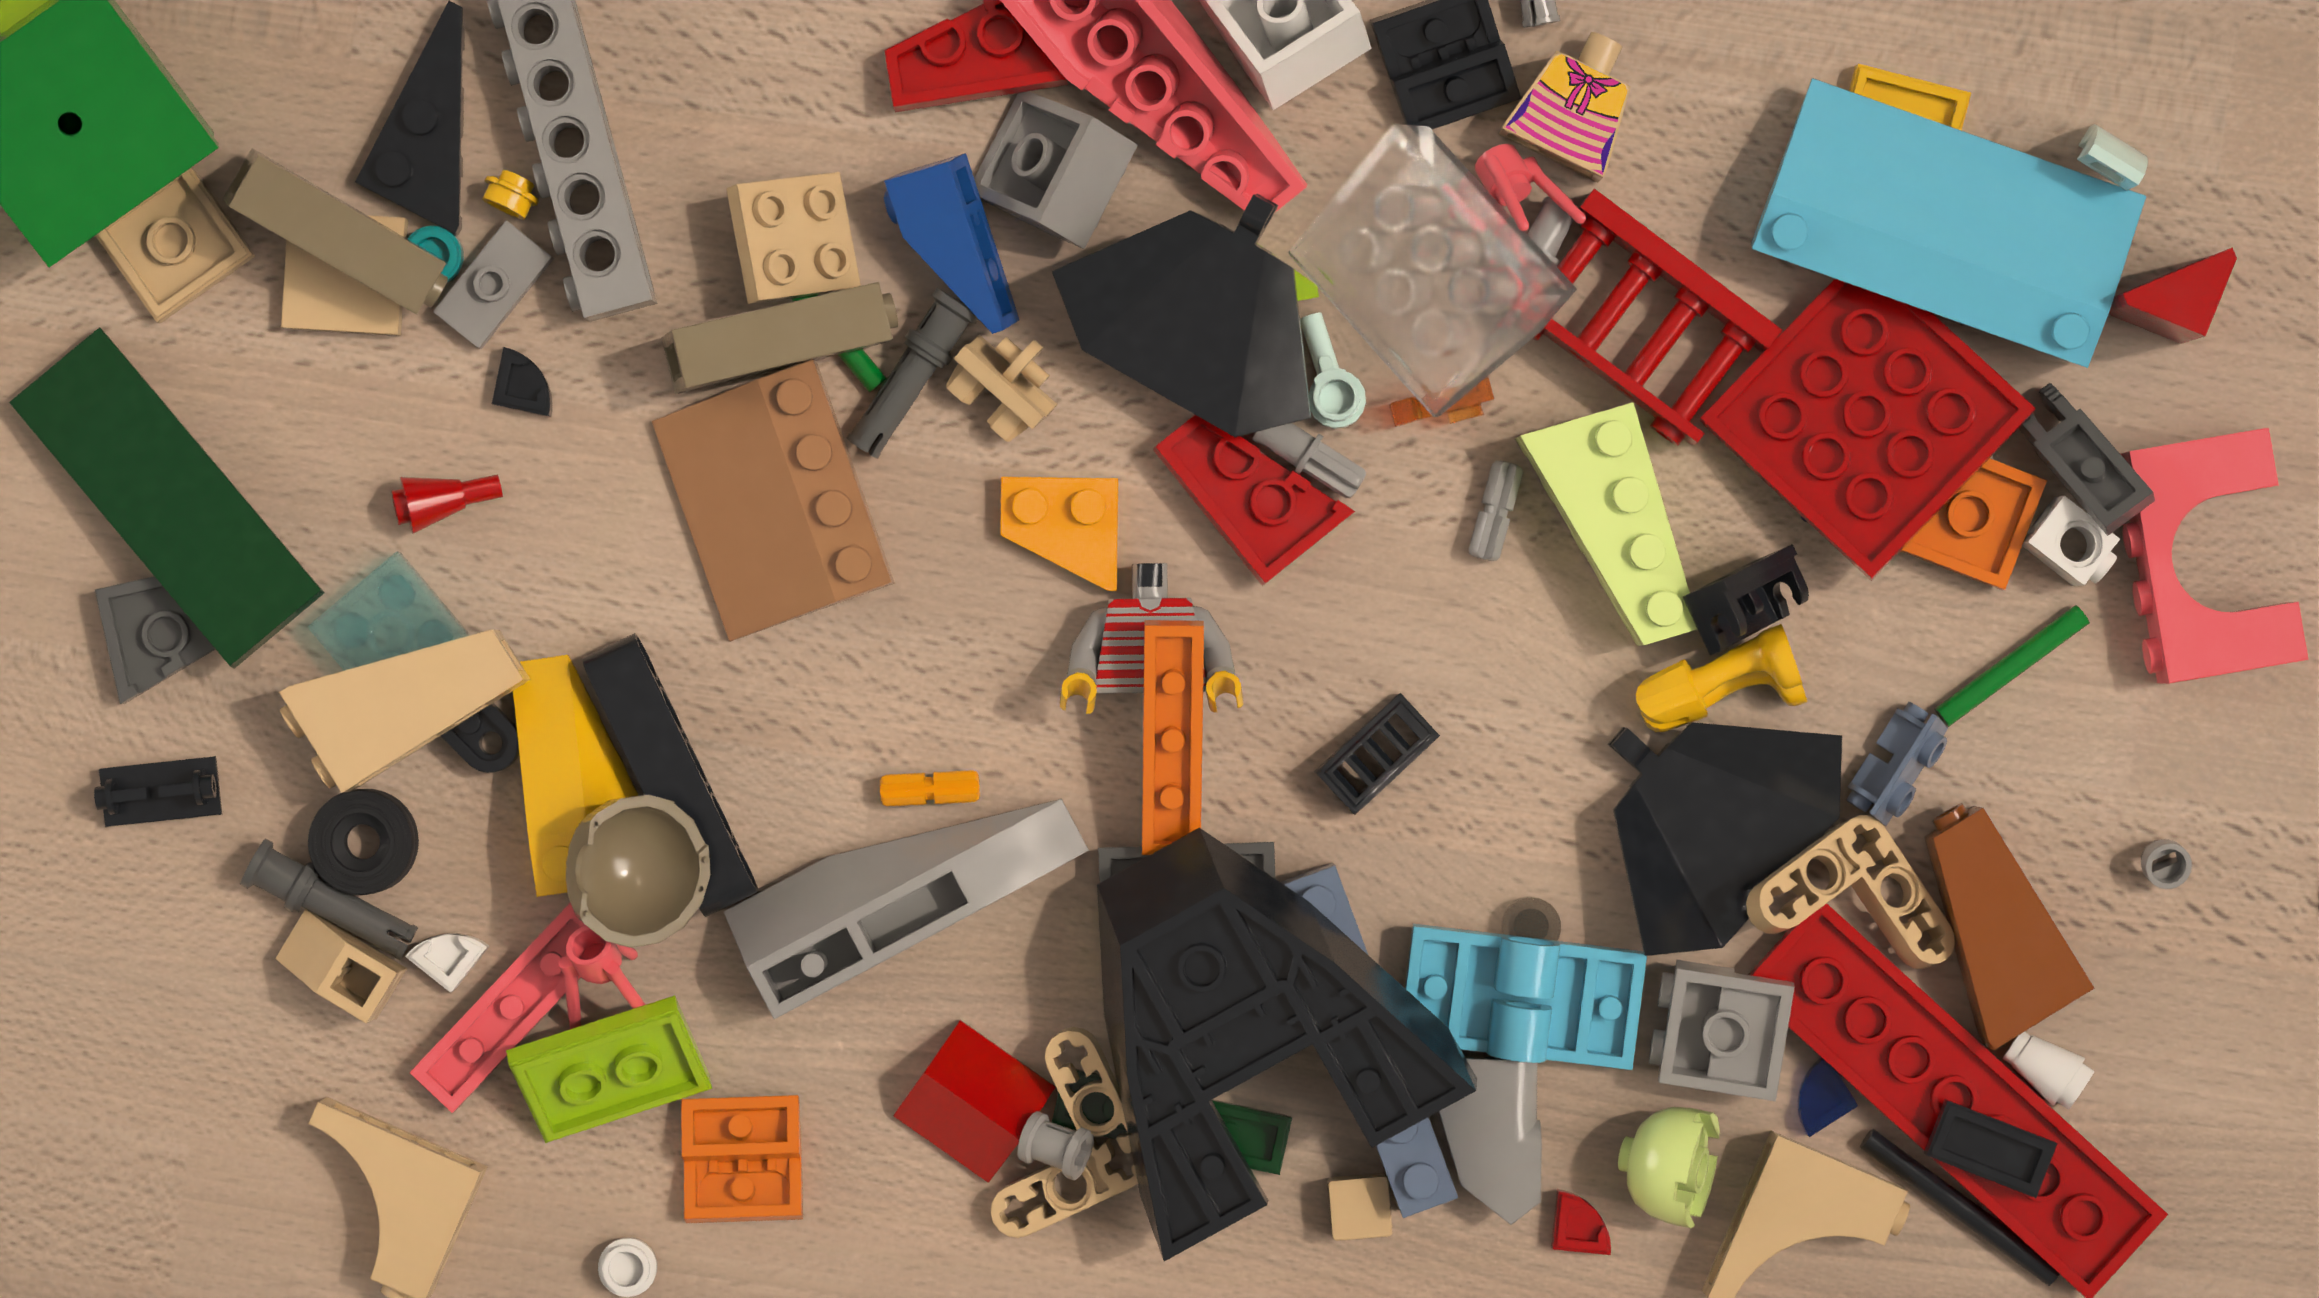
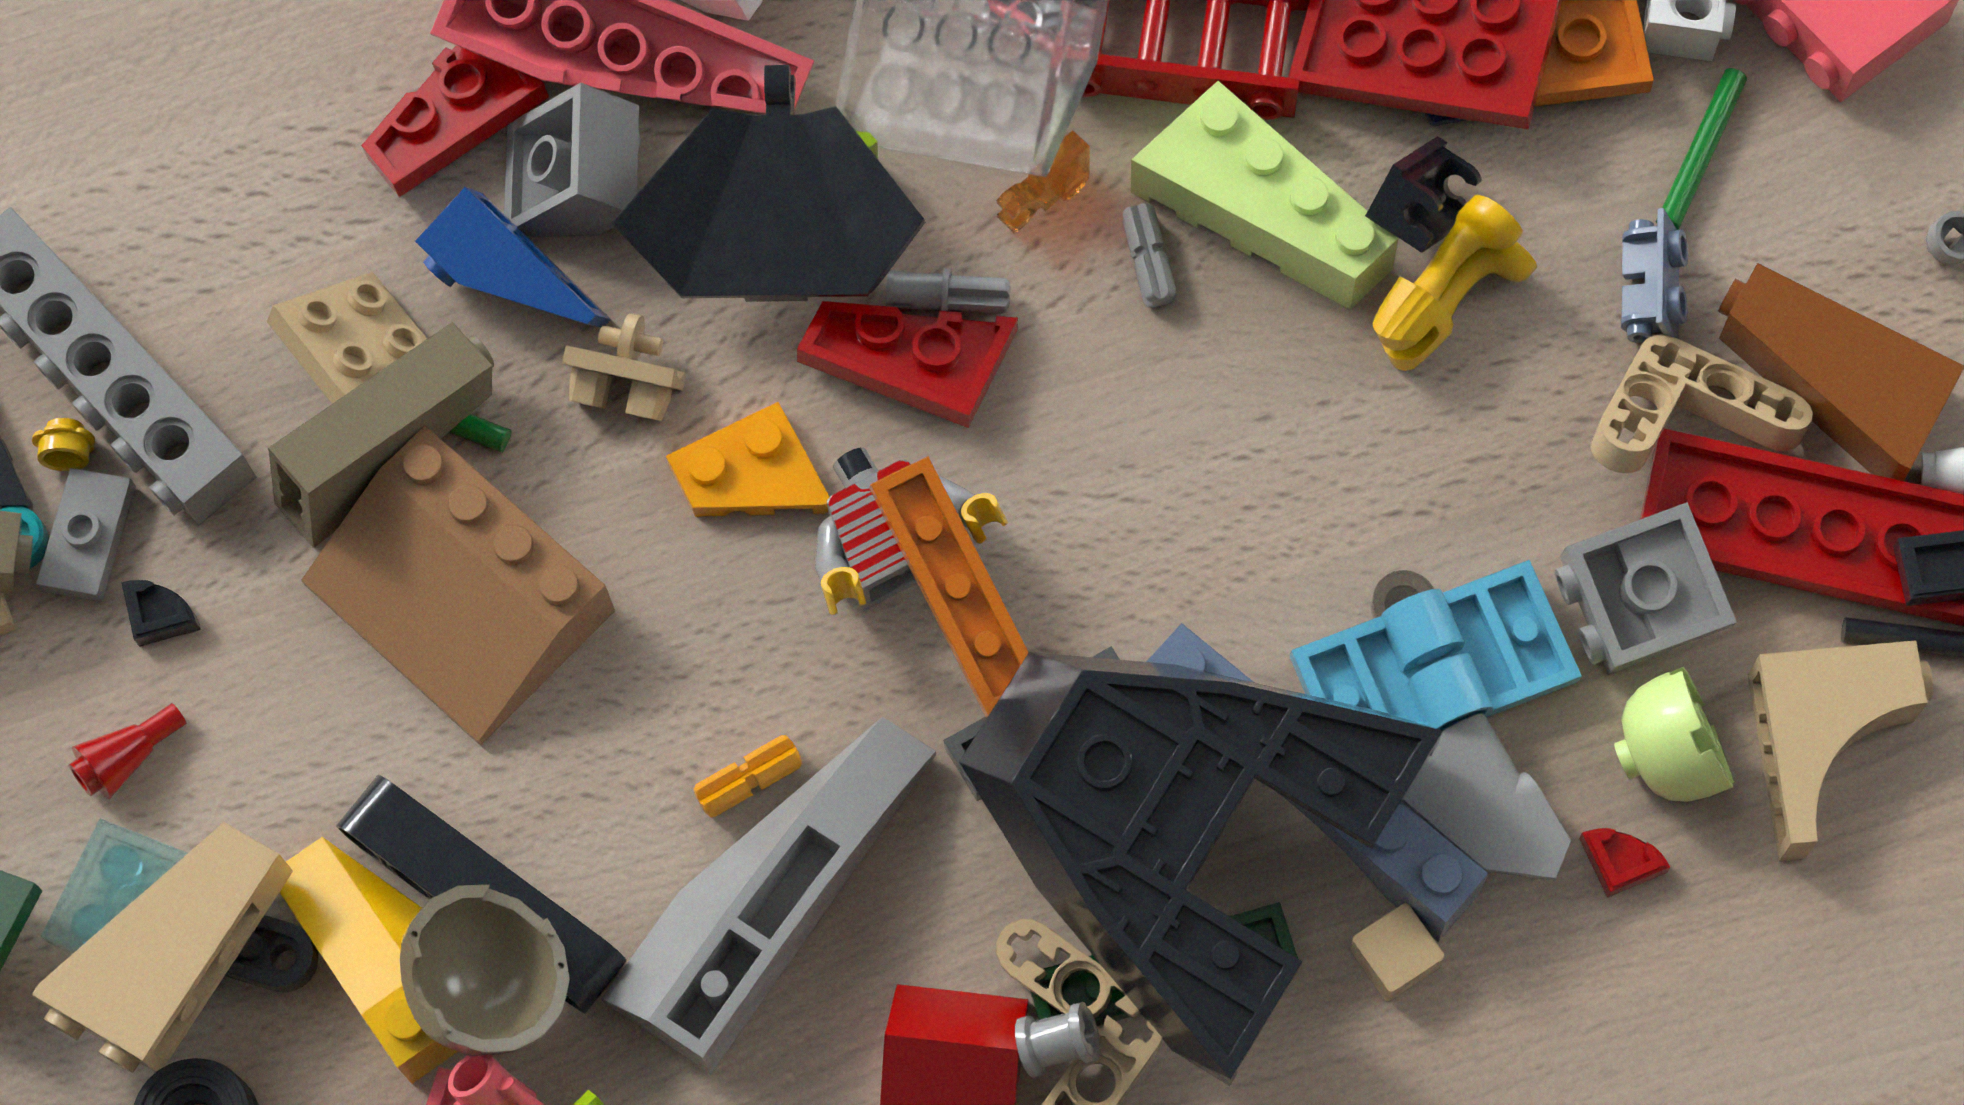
camera: 30 degrees left, 20 degrees down
(927, 349) = (535, 379): dark grey pin -> none
(1335, 395) = (947, 231): light aqua plate -> none
(1342, 788) = (1149, 567): black slope -> none
(1716, 821) = (1519, 407): black panel -> none
(1822, 1098) = (1777, 613): clear blue tile -> none

